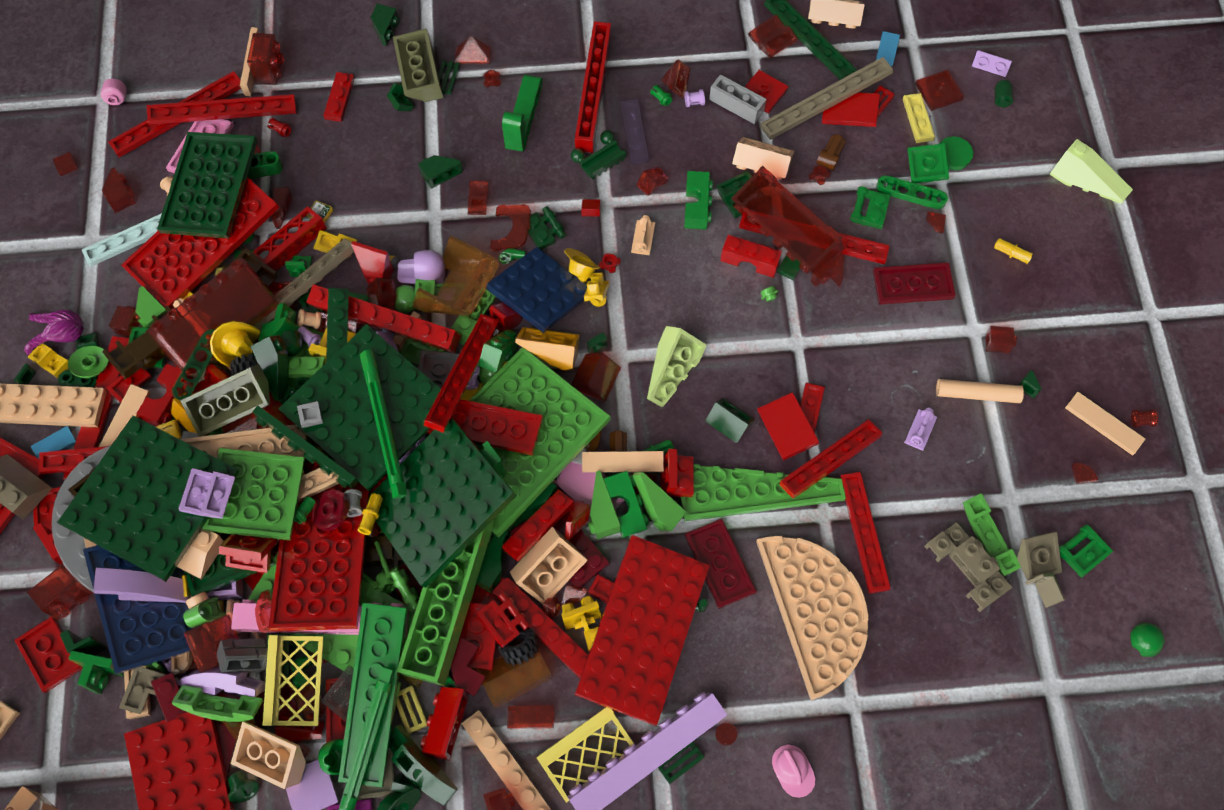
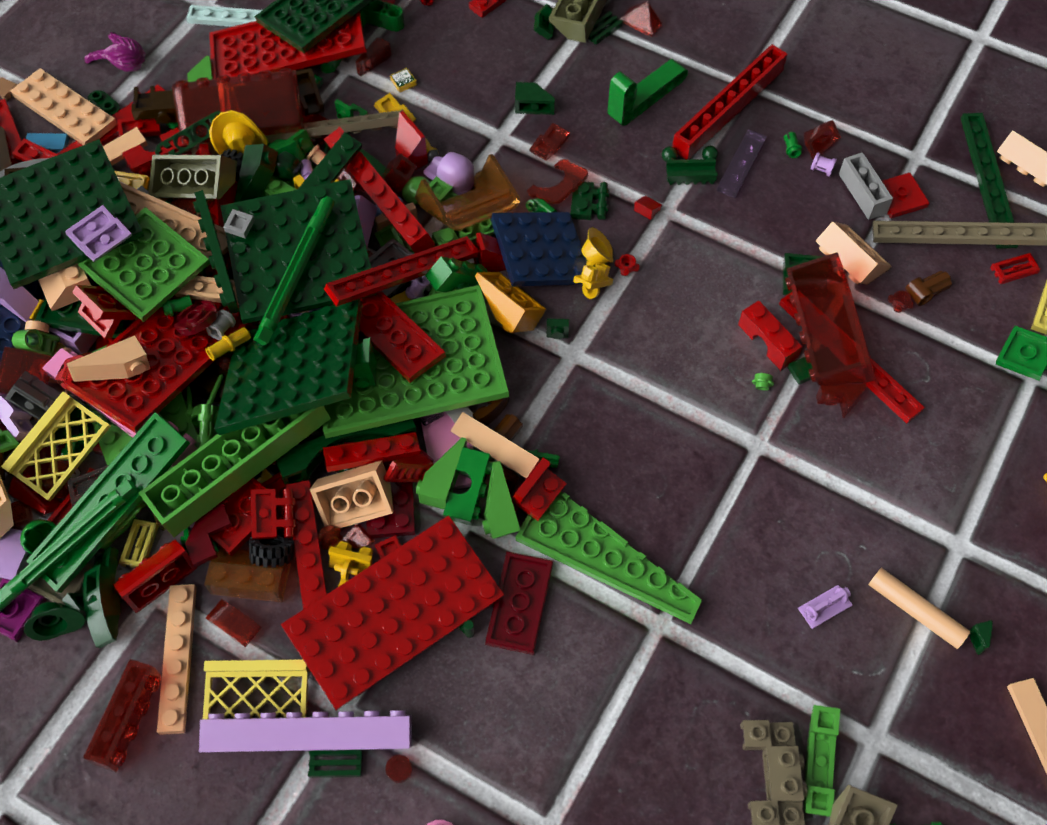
camera: 35 degrees right, 5 degrees down
(25, 375) = (68, 76): dark green slope -> none
(49, 360) = (96, 76): yellow slope -> none
(87, 362) = (119, 92): bright green dish -> none
(88, 340) = (134, 79): dark green slope -> none
(124, 320) = (173, 74): clear red brick -> none
(293, 242) = (358, 90): red fence -> none
(298, 585) = (112, 362): none -> light nougat slope
(491, 74) = (642, 49): clear red plate -> none
(596, 375) = (536, 357): clear red slope -> none
(643, 236) = (678, 259): light nougat hinge -> none
(650, 179) = (725, 212): clear red bracket -> none
(674, 359) = (618, 387): yellowish green wedge -> none
(697, 213) = (747, 268): green arch -> none
(729, 420) = (632, 473): dark green panel -> none
(772, 36) = (948, 150): clear red slope -> none
(787, 426) = (685, 516): red tile -> none
(811, 403) = (719, 516): red tile -> none
(819, 609) = (582, 714): light nougat plate -> none
(830, 459) = (704, 573): red plate -> none
(856, 110) = (983, 261): red tile -> none
(865, 533) = (686, 669): red plate -> none
(876, 208) = (937, 367): green plate -> none
(912, 189) = (992, 369): green beam -> none
(914, 283) = (925, 460): dark red plate -> none
(937, 221) = (996, 414): clear red tile -> none
(1000, 339) = (981, 570): clear red brick -> none
(1083, 474) = (978, 768): clear red tile -> none

